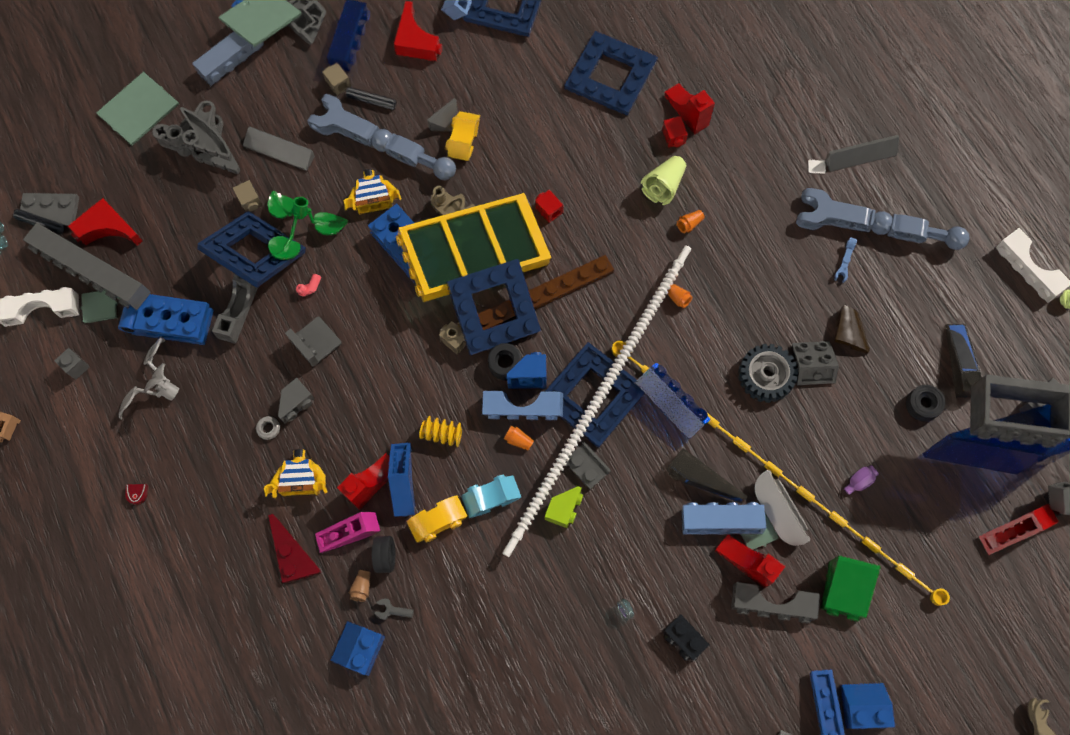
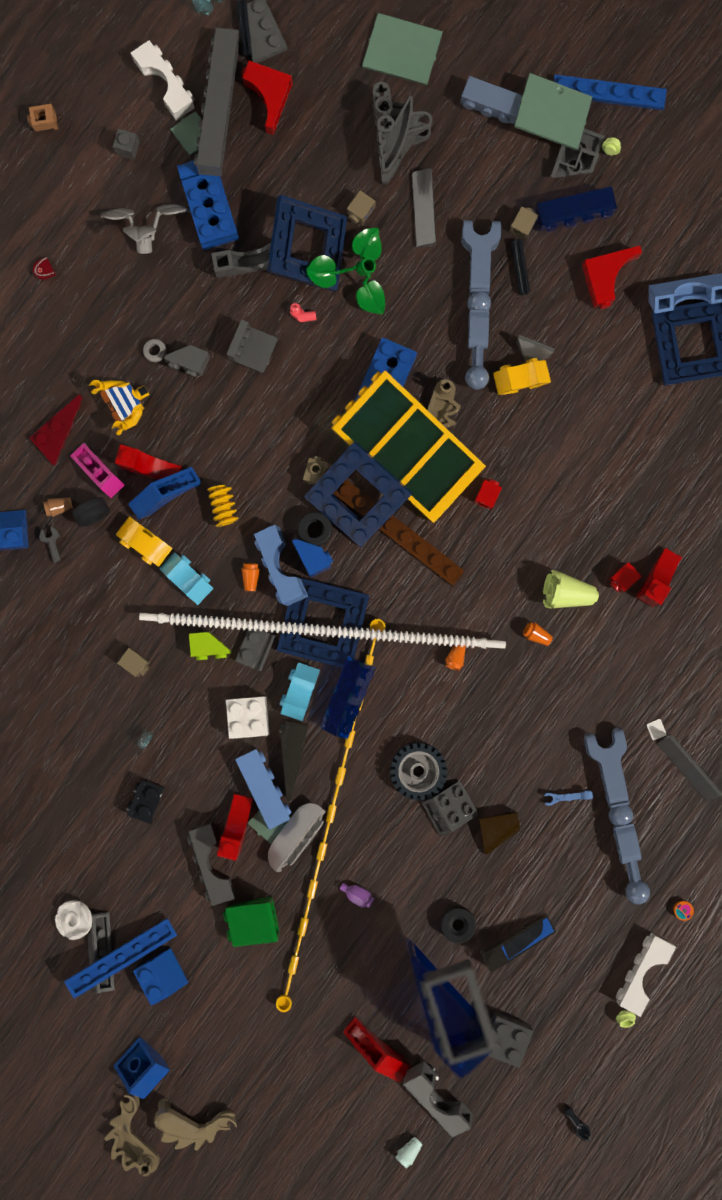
camera: 60 degrees right, 15 degrees up
(371, 194) = (419, 322): torso -> none
(547, 584) = (134, 663): none -> dark tan brick
(620, 101) = (634, 485): dark blue plate -> none
(647, 443) = (300, 690): none -> medium azure brick
(649, 501) = (247, 717): none -> white brick
(986, 212) = (683, 910): none -> tile

